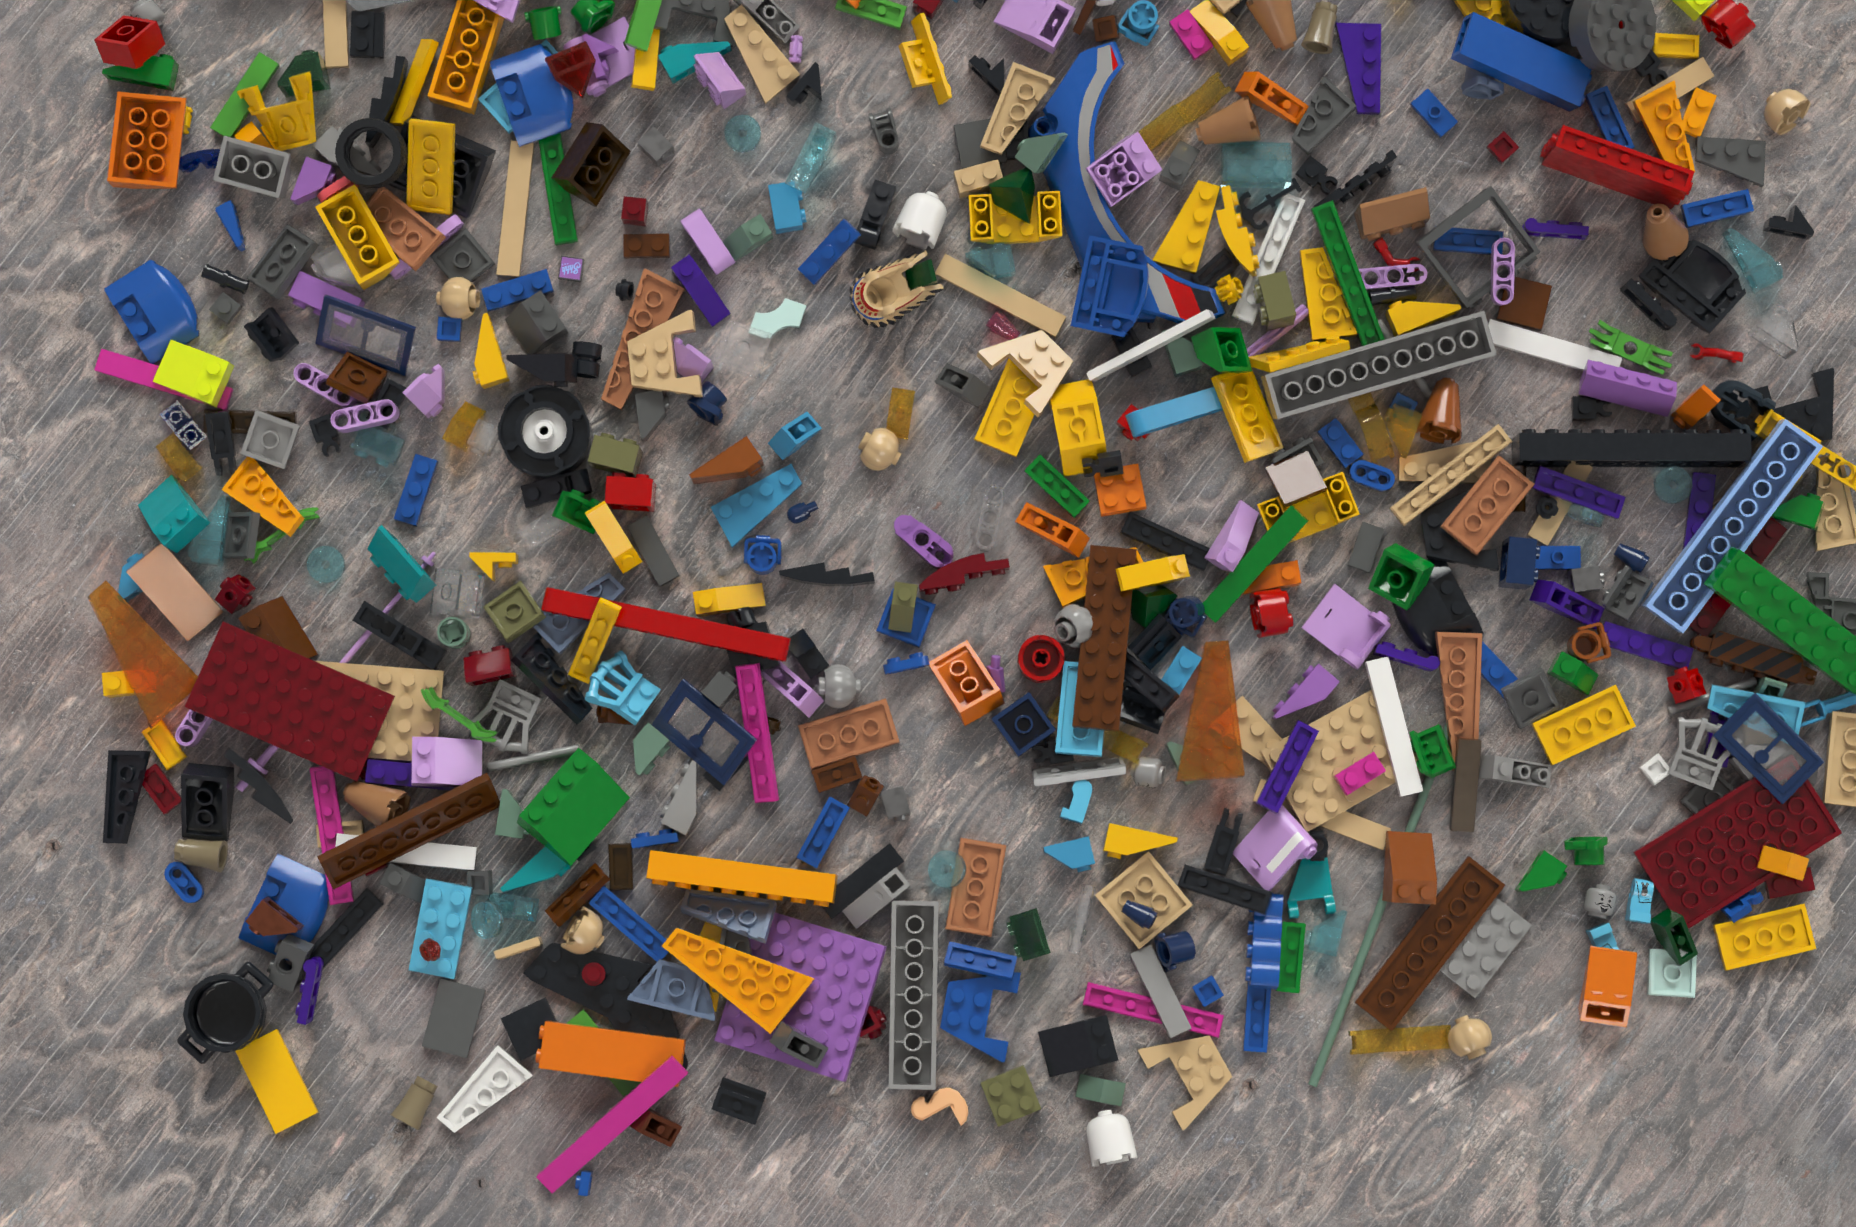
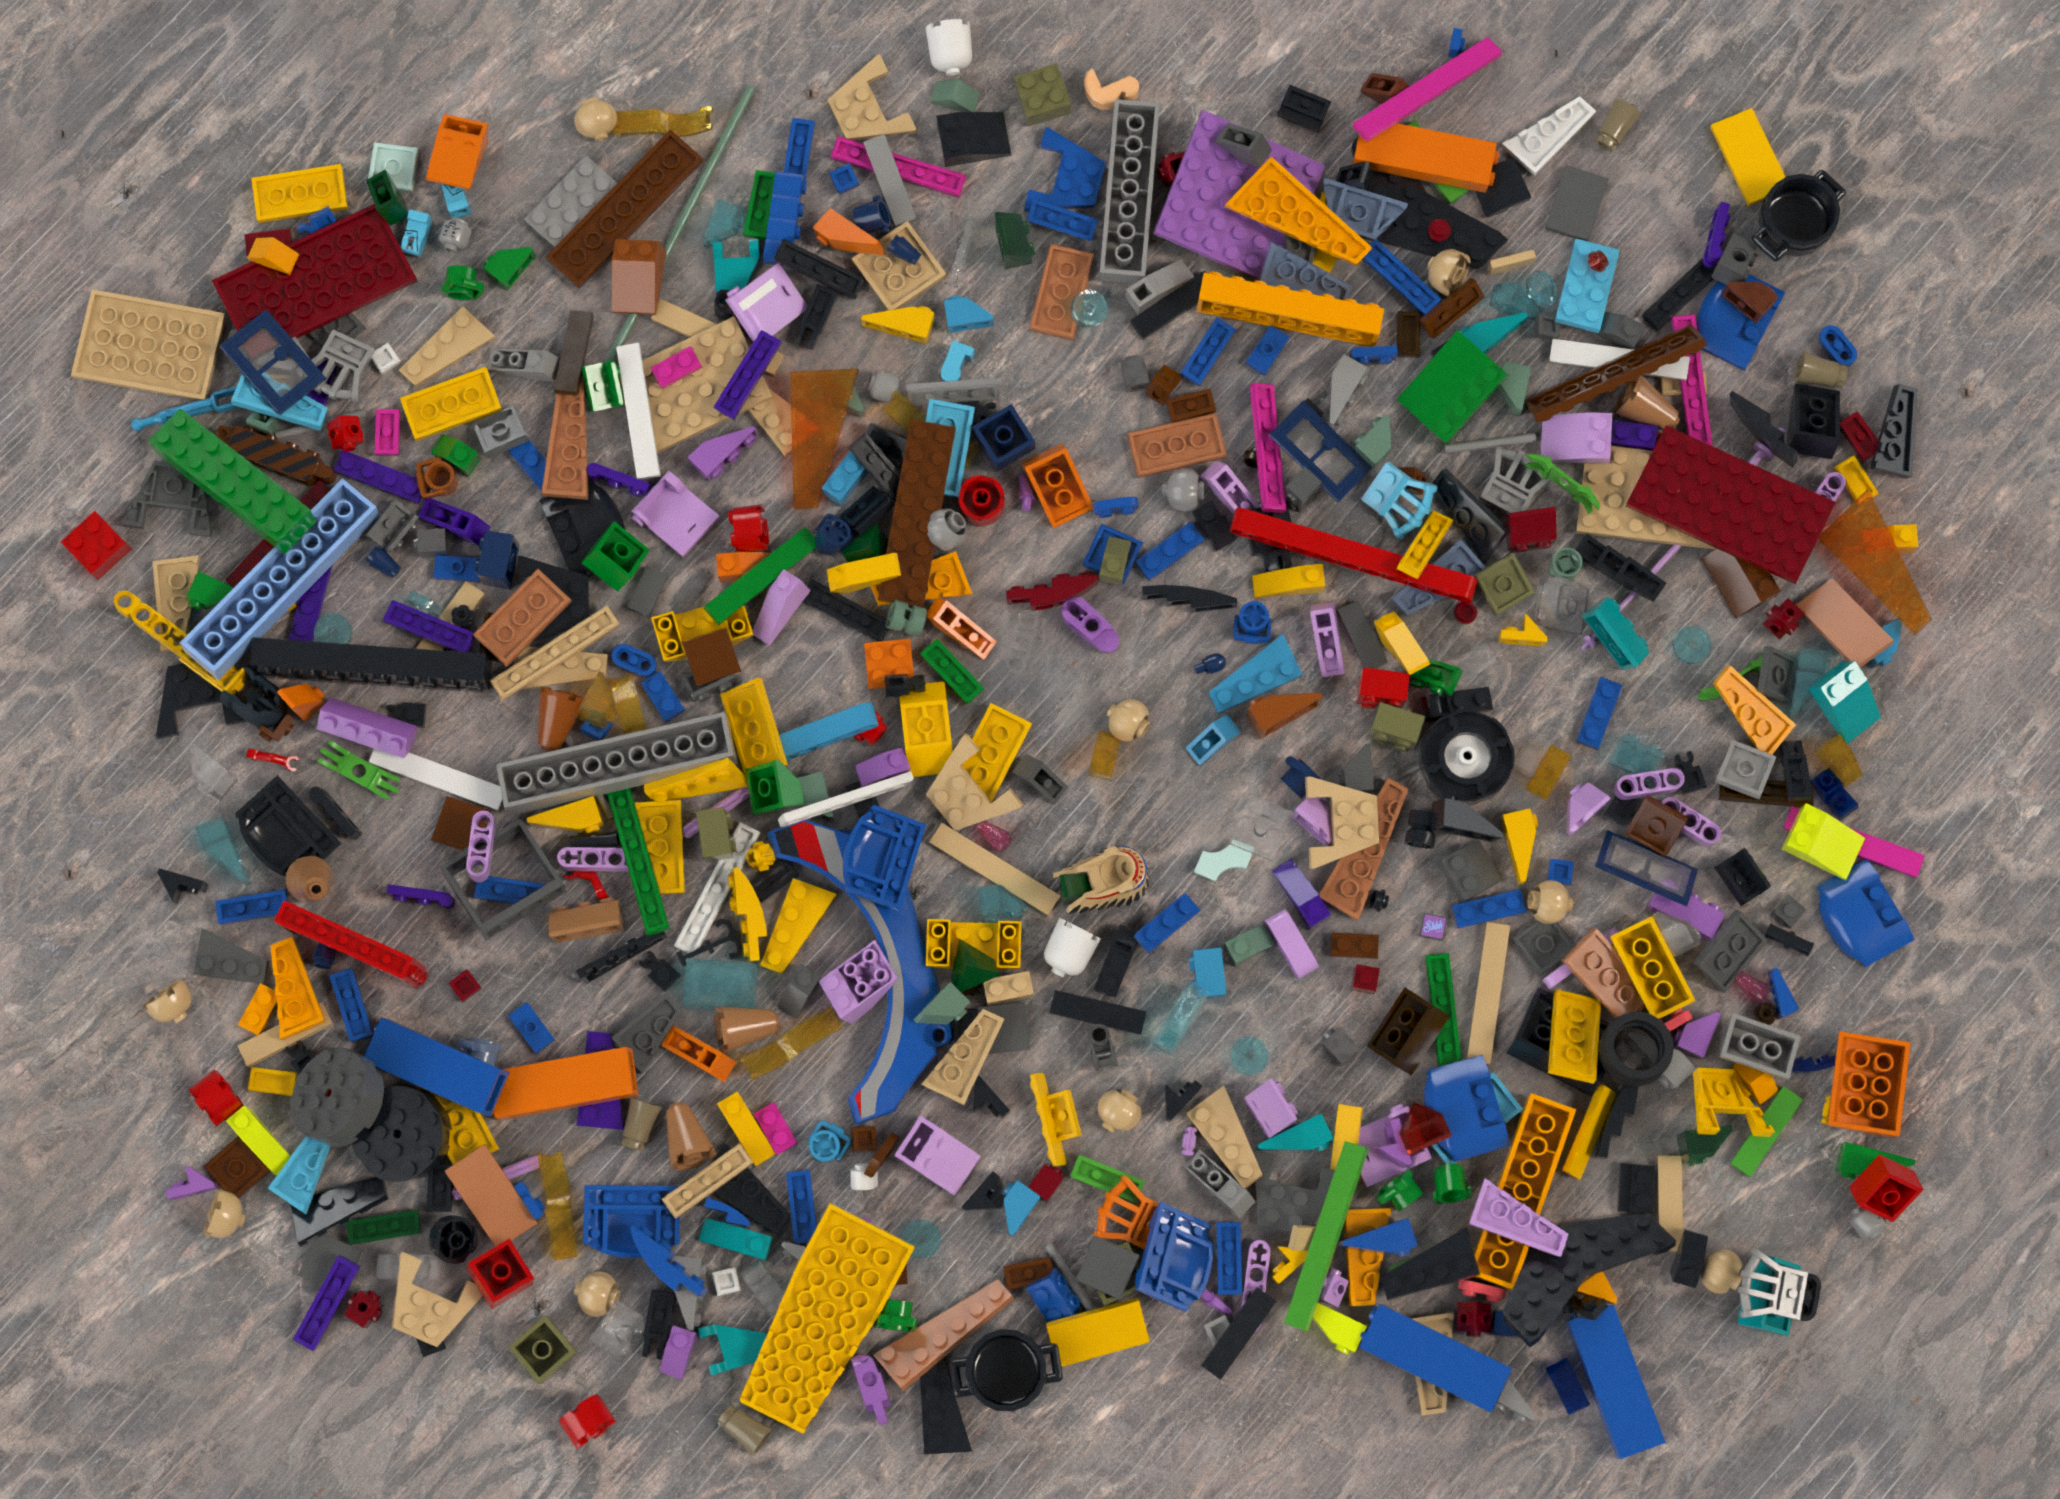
camera: 175 degrees left, 5 degrees down
(251, 211) = (1765, 1007): none -> dark brown plate
(259, 230) = (1752, 987): none -> clear pink cone
(551, 579) = (1465, 612): none -> dark red plate
(683, 1025) = (1356, 175): none -> black slope
(687, 545) = (1327, 638): none -> lavender slope
(762, 839) = (1267, 350): none -> blue plate
(849, 624) = (1170, 551): none -> blue plate
(864, 72) = (1119, 1110): none -> tan plant
(890, 165) = (1097, 1012): none -> black tile
(1106, 533) = (912, 623): none -> sand green wheel
(1117, 383) = (882, 767): none -> medium lavender slope
(1205, 928) = (844, 235): none -> orange slope
(1393, 57) = (567, 1083): none -> orange brick
(1589, 790) = (453, 341): none -> tan wing
(1644, 690) = (387, 432): none -> dark pink plate
(1716, 377) = (280, 729): none -> reddish brown bracket

